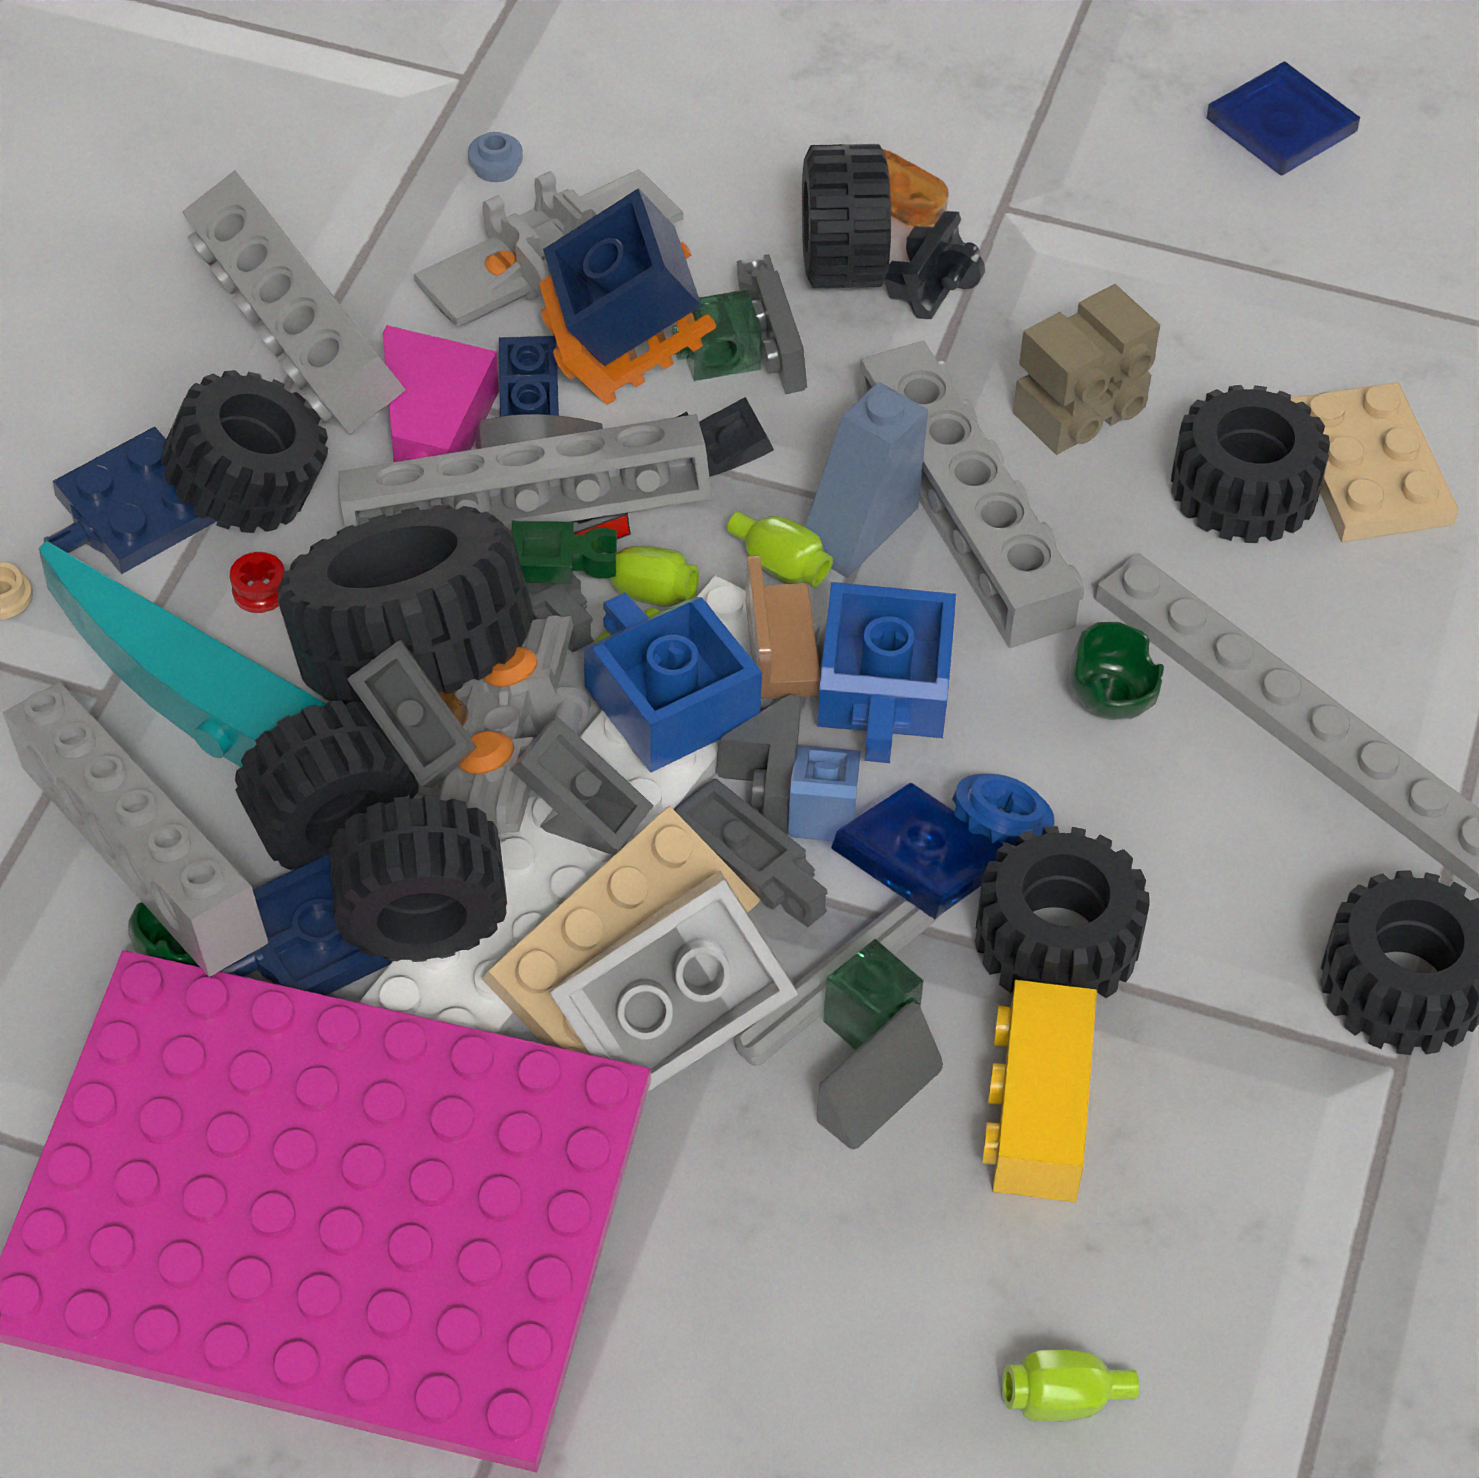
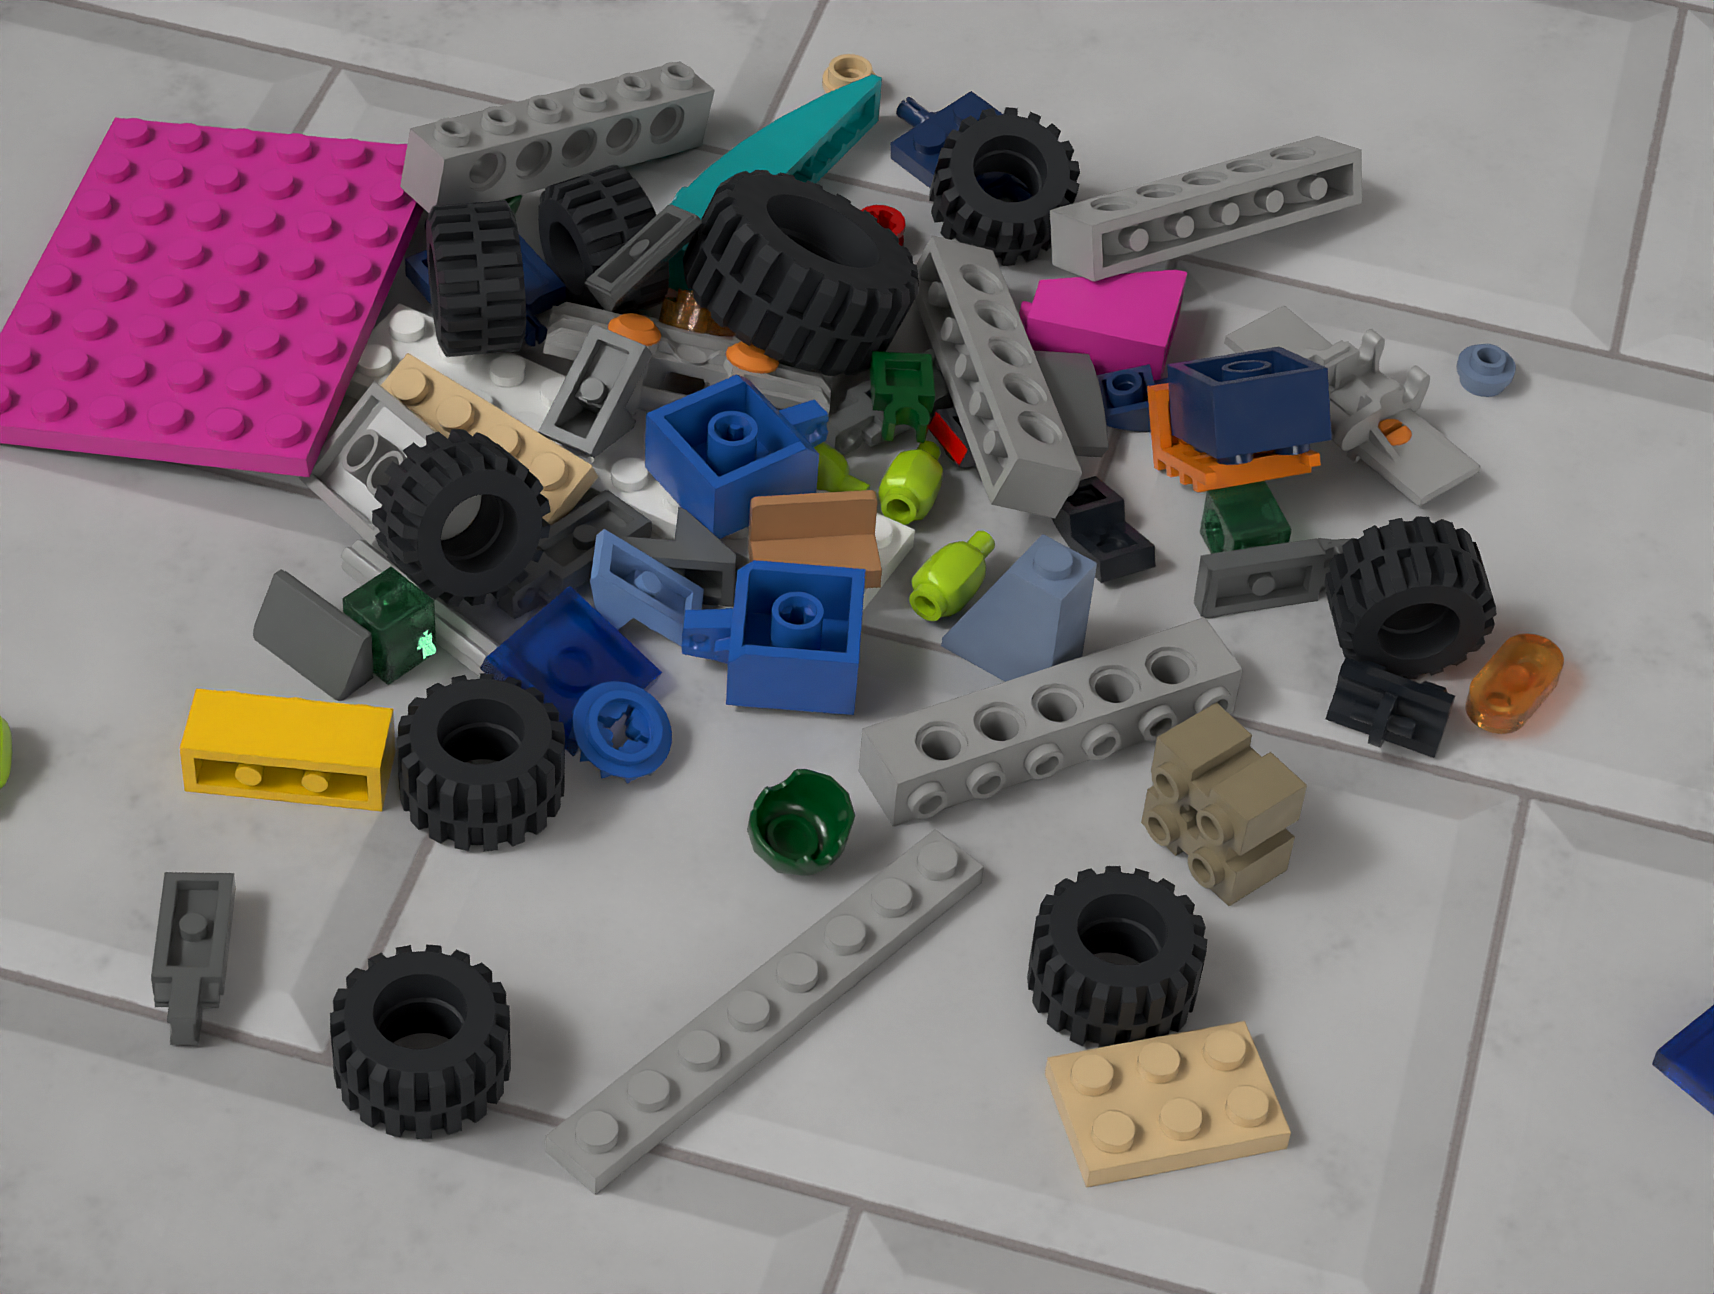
camera: 85 degrees right, 5 degrees down
(791, 893) = (496, 542): none -> black tyre
(1306, 1167) = (192, 948): none -> dark grey hinge

